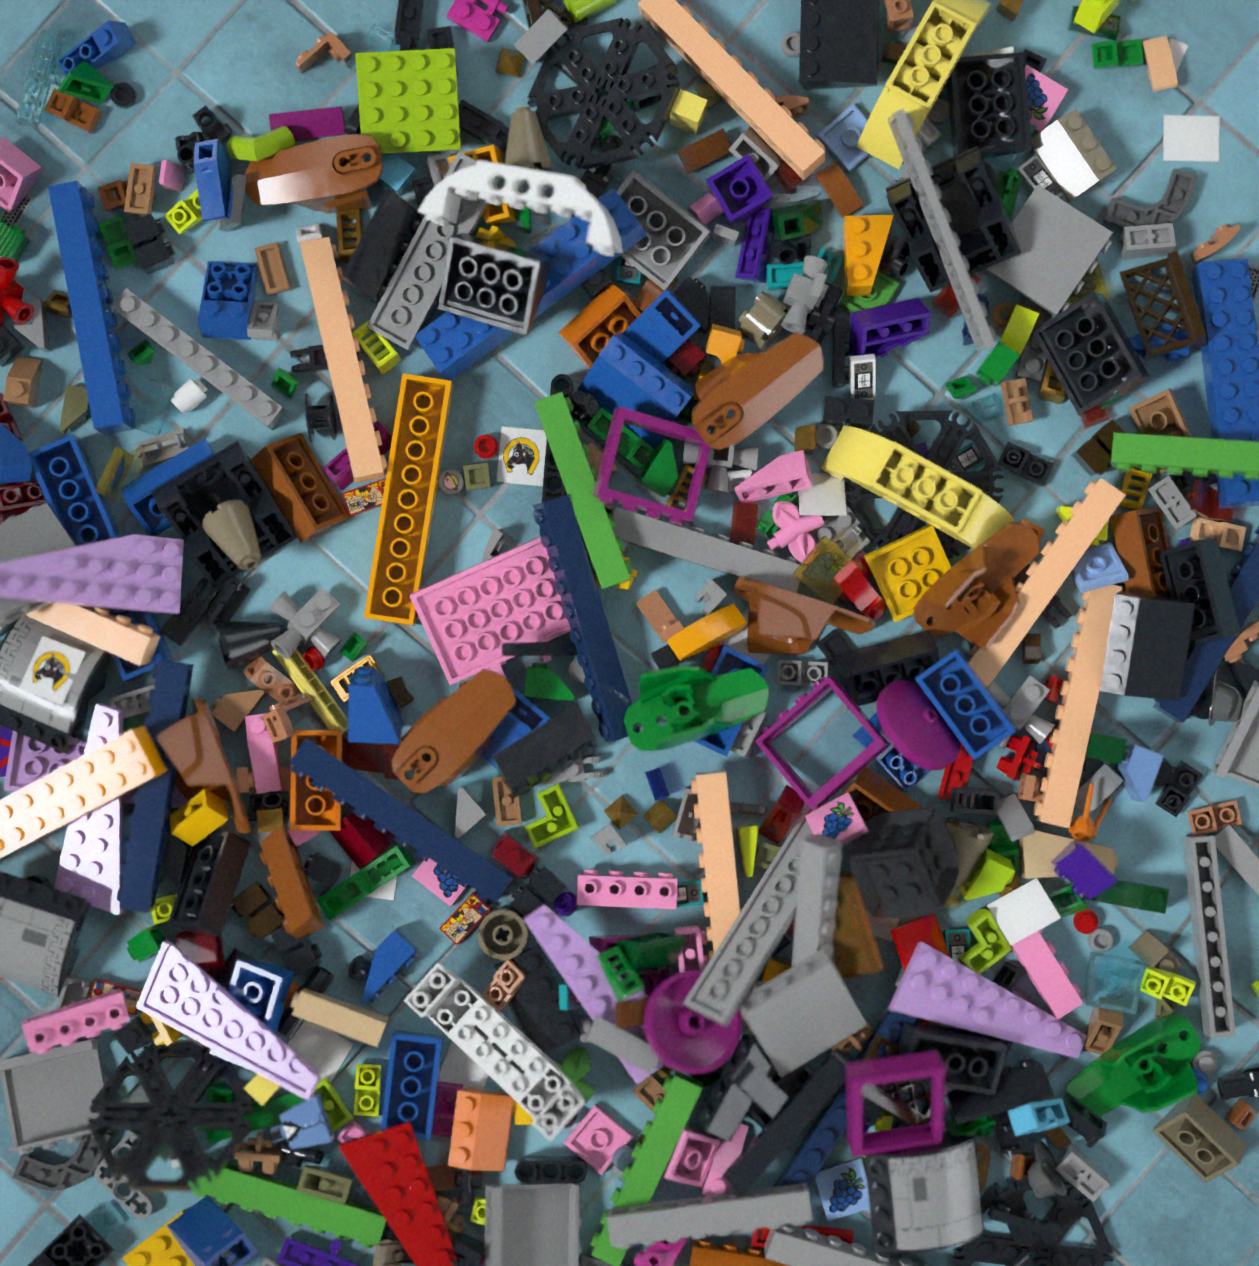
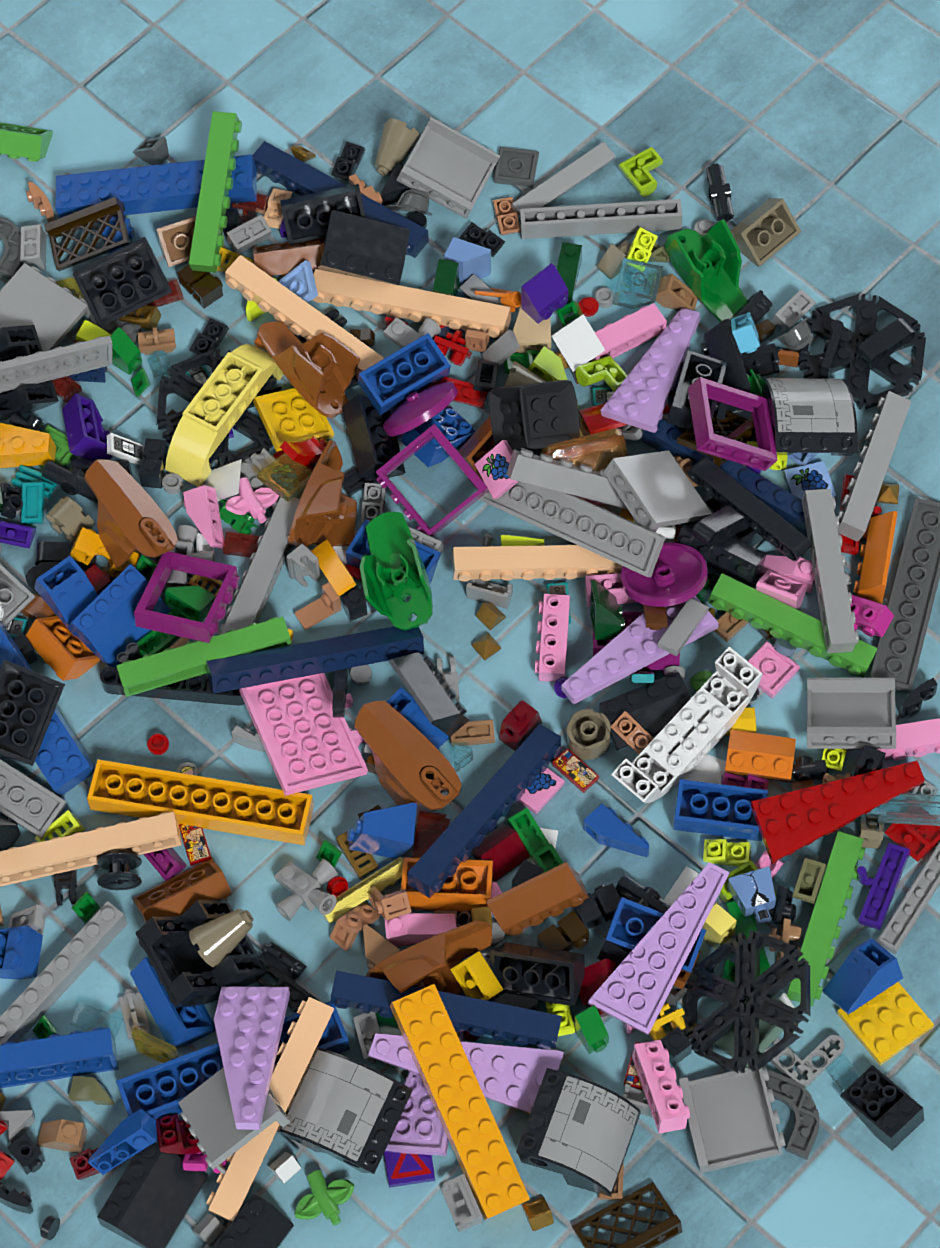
camera: 80 degrees left, 25 degrees down
(45, 670) = (333, 1095): sticker -> none
(189, 395) = (89, 988): white brick -> none
(246, 640) = (318, 943): black cone -> none
(340, 1016) = (659, 859): tan slope -> none
(359, 968) = (617, 854): black tile -> none
(467, 813) = (480, 763): light grey slope -> none
(477, 476) = (184, 750): olive plate -> none
(521, 456) = (169, 718): sticker -> none
(539, 1175) = (798, 695): black beam -> none
(542, 881) = (553, 709): black piece -> none
(545, 684) = (372, 691): green slope -> none
(558, 818) = (490, 691): lime brick -> none
(607, 835) = (504, 646): light grey hinge -> none
(616, 984) = (623, 628): green slope -> none
(657, 784) = (463, 615): clear blue piece -> none
(765, 854) = (527, 530): olive plate -> none
(781, 815) = (491, 518): clear red slope -> none
(804, 293) = (50, 483): light grey brick -> none
(805, 438) = (173, 496): pearl gold slope -> none
(1008, 977) = (631, 358): black slope -> none
(1241, 1114) = (745, 205): dark orange slope -> none

